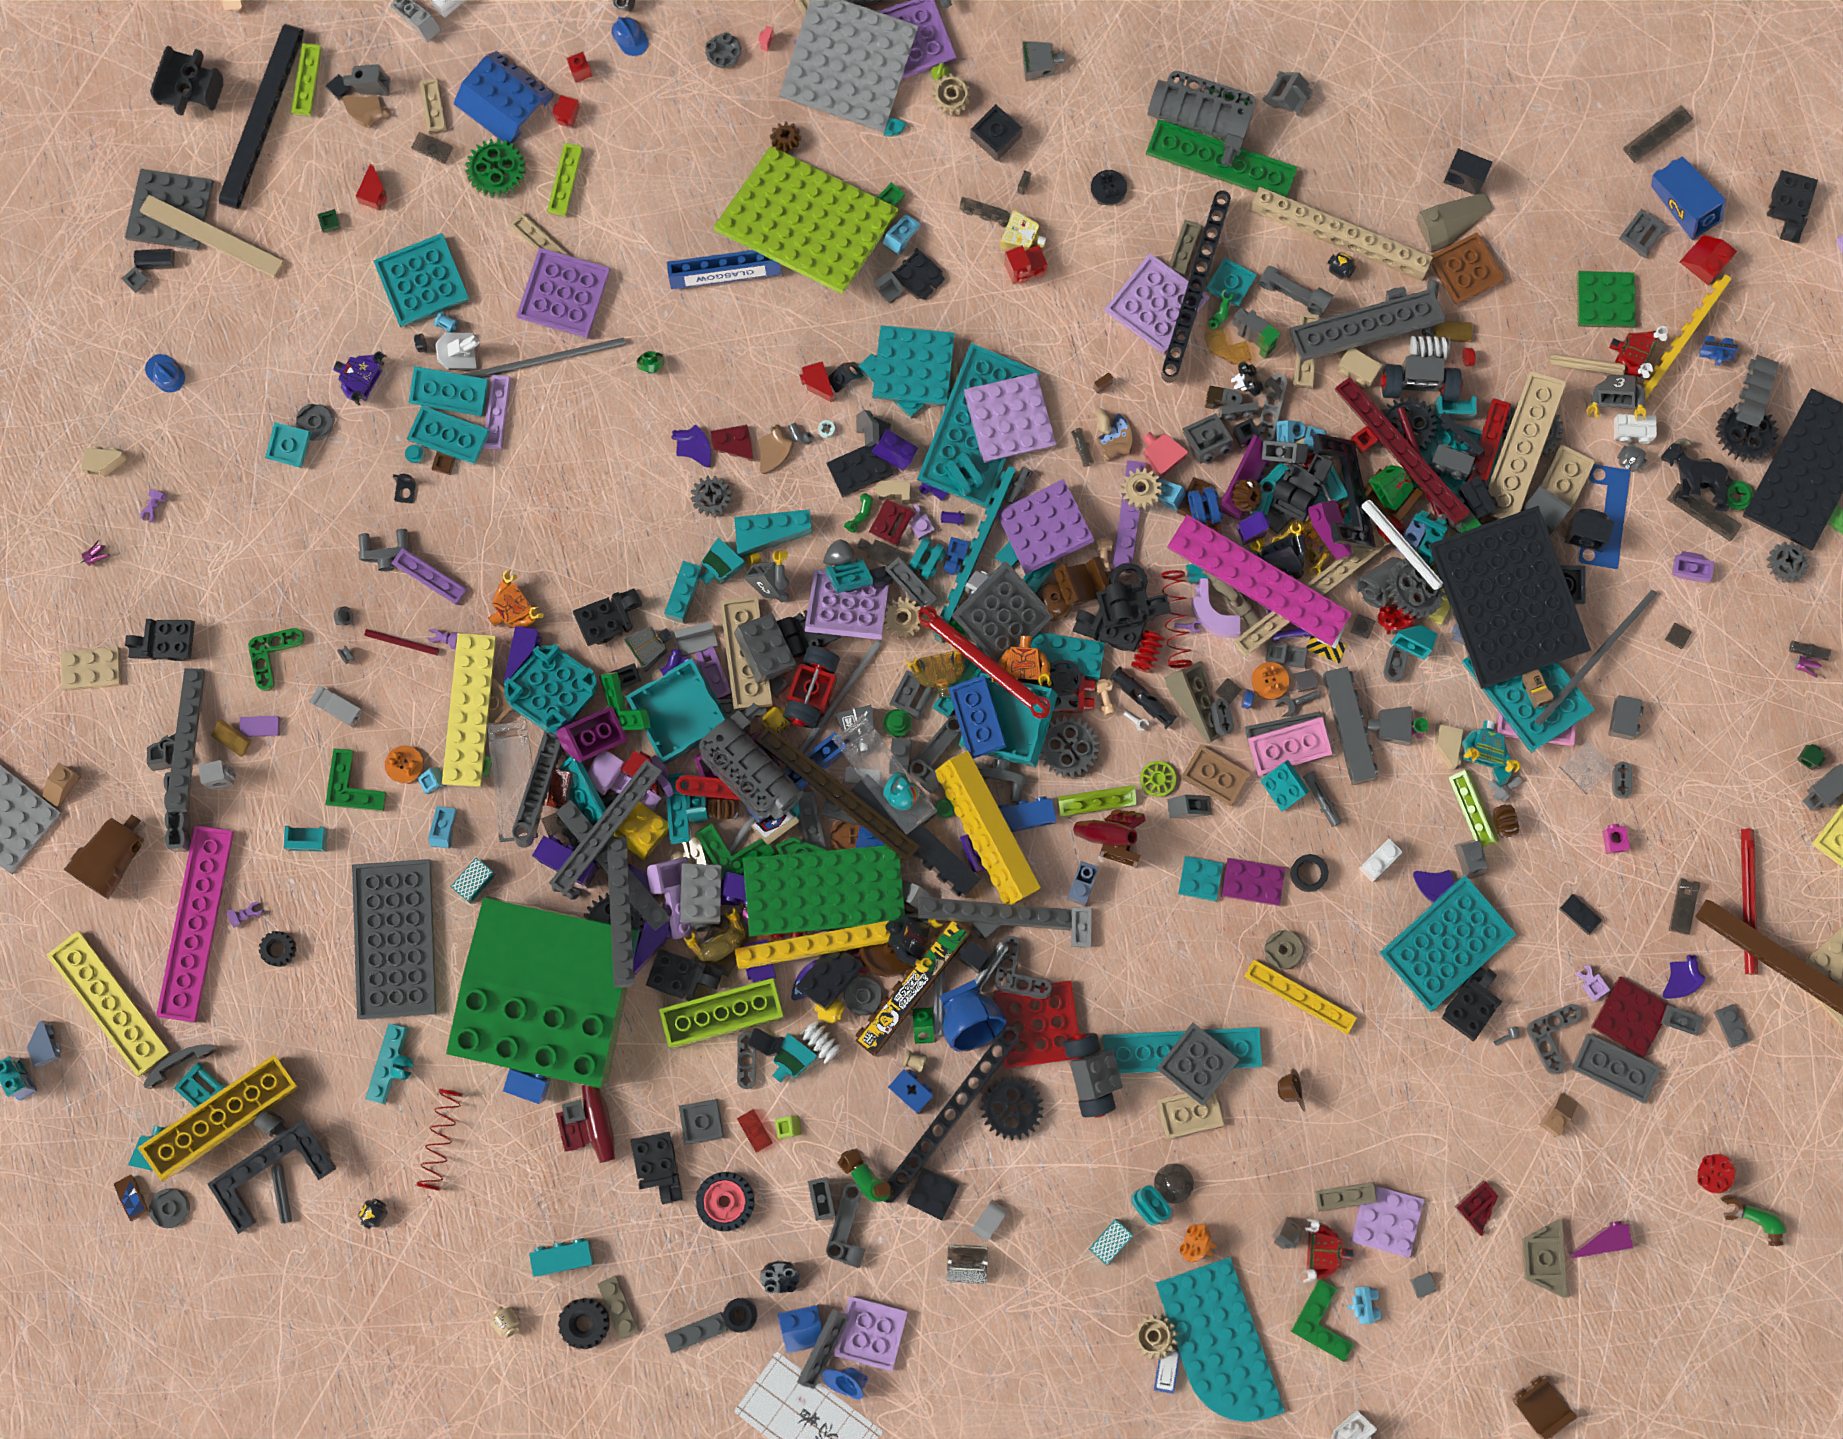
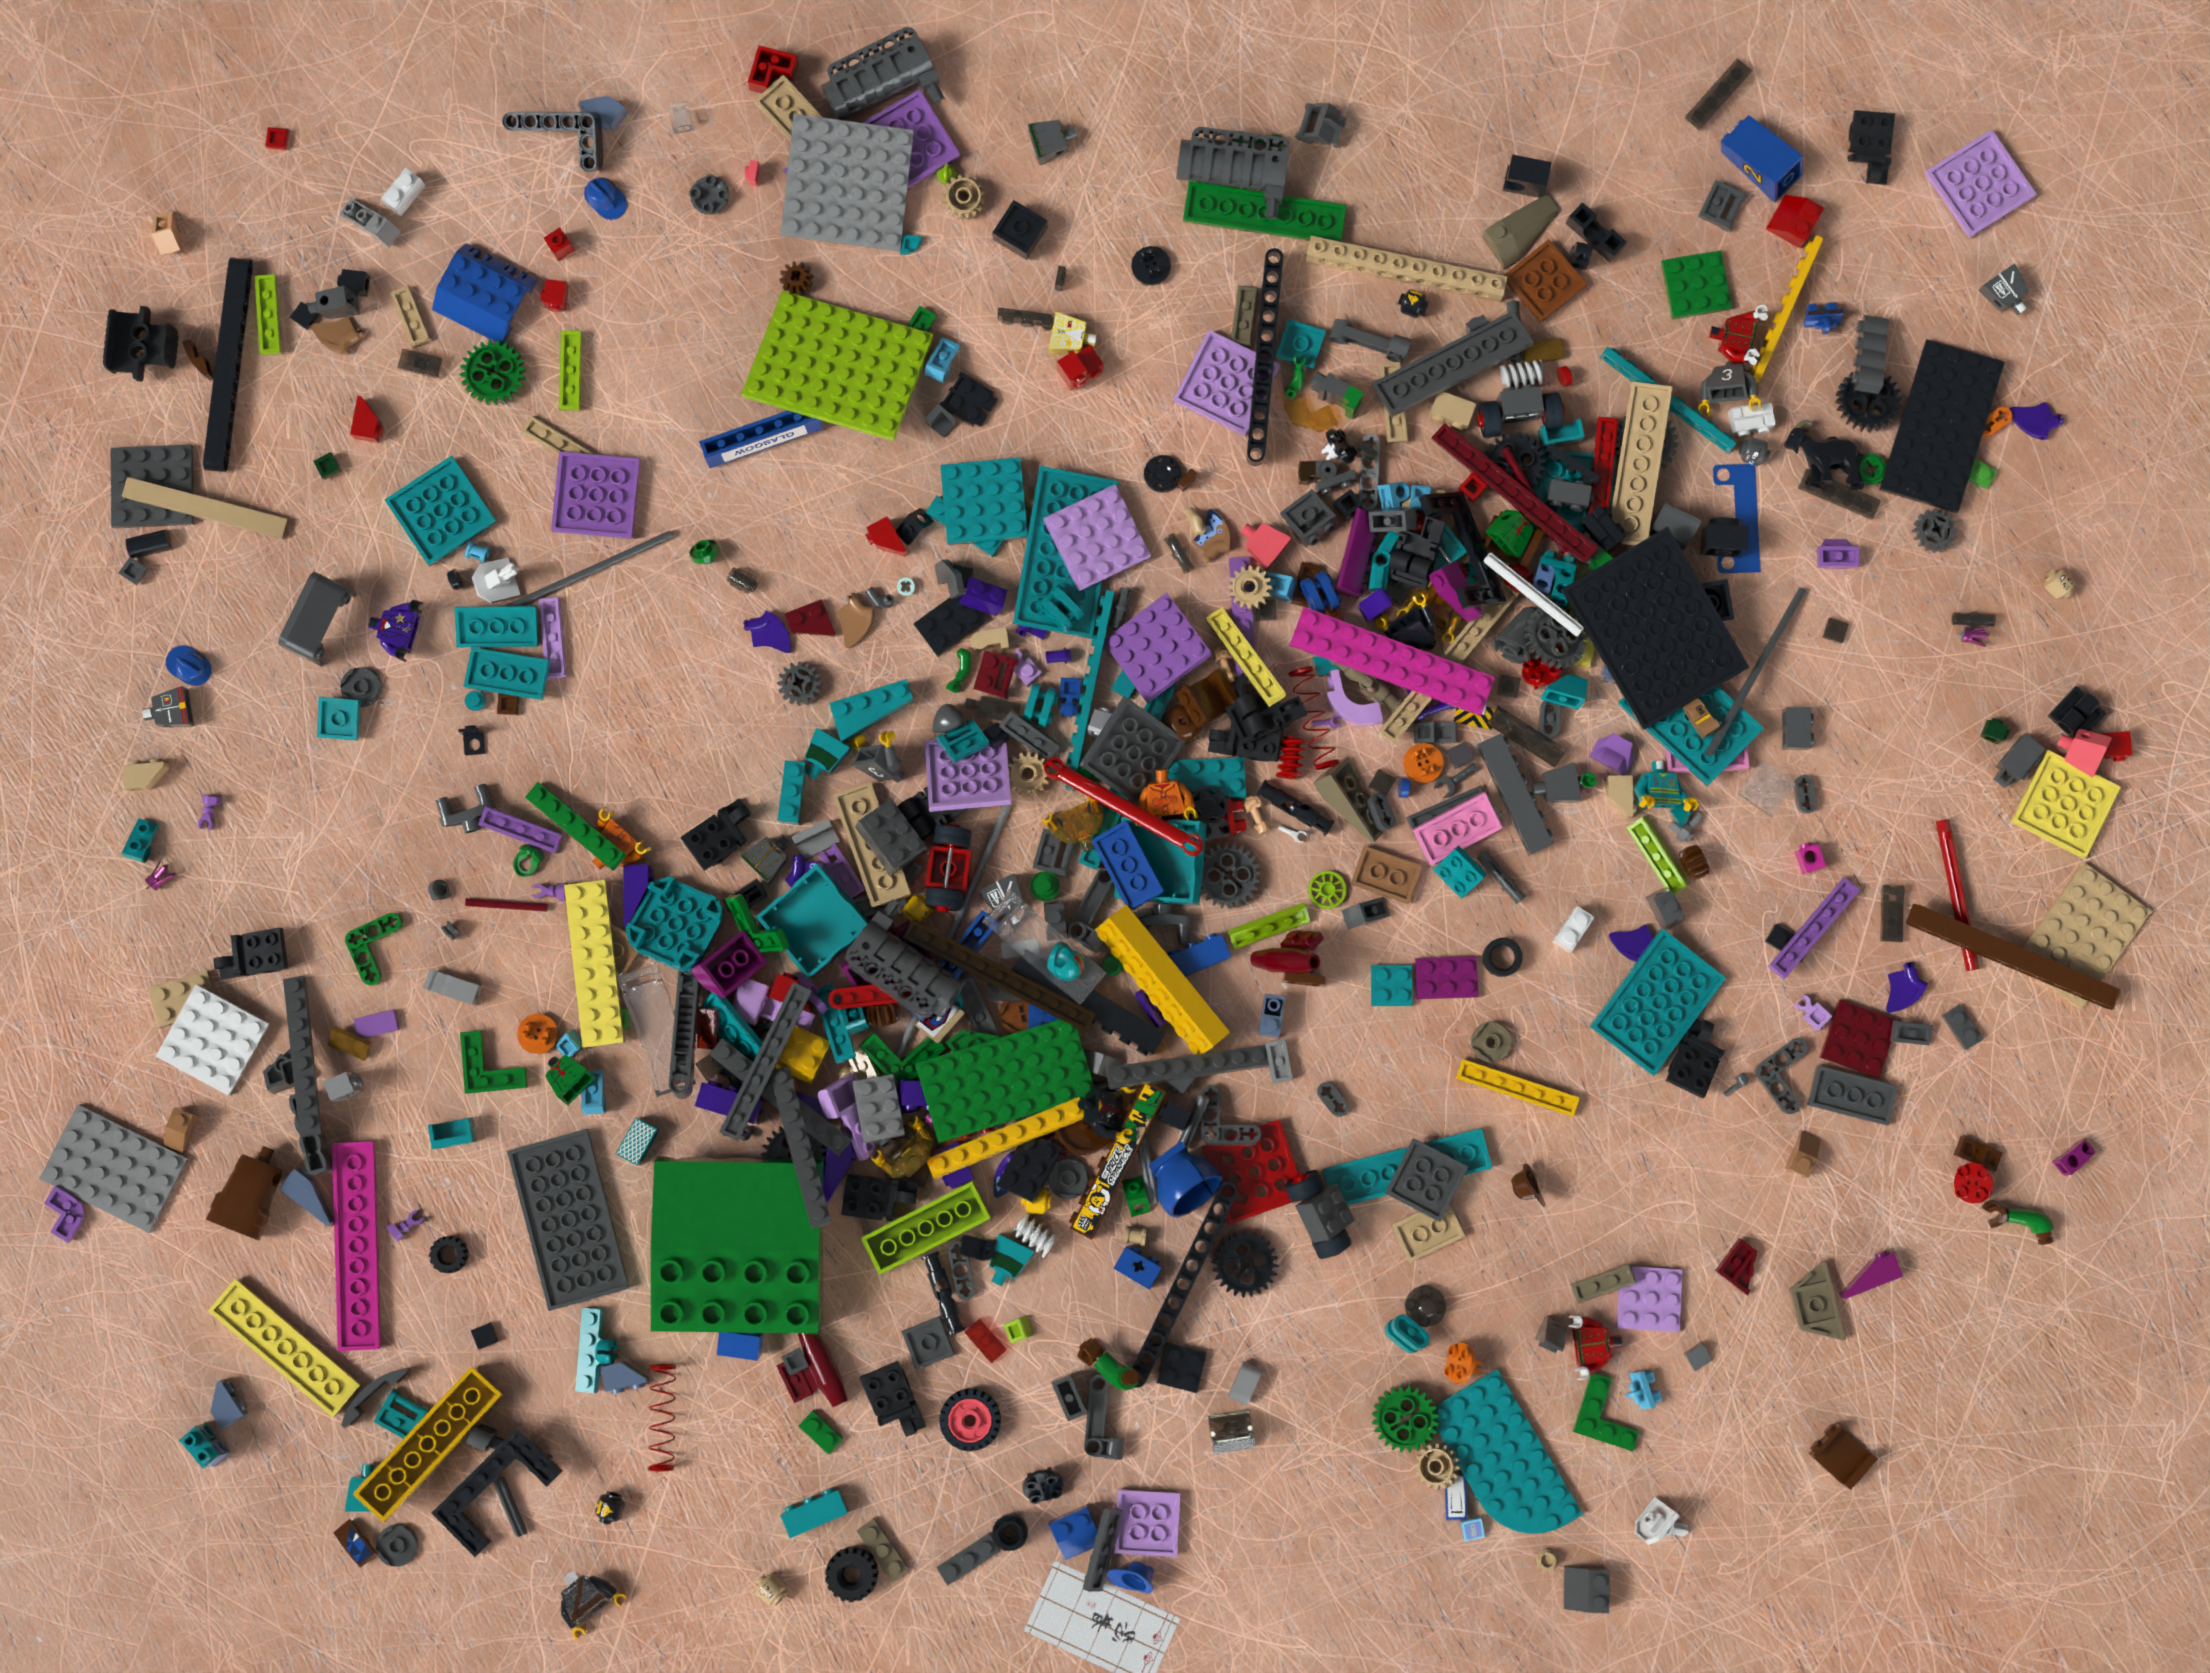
camera: 15 degrees left, 5 degrees up
(84, 519) = (139, 841): none -> teal plate
(108, 709) = (212, 1039): none -> white plate
(140, 407) = (171, 709): none -> dark grey torso
(160, 865) = (306, 1193): none -> sand blue slope
(236, 108) = (201, 362): none -> reddish brown slope
(284, 347) = (313, 616): none -> dark grey windscreen
(293, 1030) = (484, 1335): none -> black tile
(331, 1294) = (584, 1599): none -> torso
(391, 65) = (355, 281): none -> black brick
(410, 1093) = (622, 1375): none -> sand blue slope
(422, 809) = (567, 1078): none -> green torso
(439, 603) = (536, 854): none -> green piece
(480, 582) = (575, 826): none -> green plate
(583, 1184) = (820, 1432): none -> green plate
(679, 394) = (742, 580): none -> clear smoke brick
(726, 1092) = (948, 1307): none -> black piece
(1081, 373) = (1162, 473): none -> black wheel
(1110, 1242) = (1373, 1379): teal panel -> none
(1120, 975) = (1336, 1096): none -> dark grey beam
(1124, 550) = (1245, 657): none -> light yellow plate
(1142, 1301) = (1417, 1433): none -> green gear
(1152, 514) = (1266, 612): none -> clear smoke plate
(1177, 1404) = (1472, 1528): none -> slope
(1247, 495) = (1362, 573): reddish brown gear -> none
(1371, 675) = (1526, 736): none -> clear smoke plate
(1449, 706) = (1613, 753): none -> medium lavender slope
(1504, 251) = (1580, 255): none -> black leg
(1513, 225) = (1585, 224): none -> black arch
(1567, 474) = (1690, 483): tan plate -> none
(1568, 402) = (1677, 405): none -> teal plate
(1587, 364) = (1689, 360): tan axle -> none
(1607, 904) = (1813, 928): none -> medium lavender plate
(1721, 1144) = (1978, 1153): none -> reddish brown slope
(1817, 1170) = (2074, 1157): none -> magenta leg

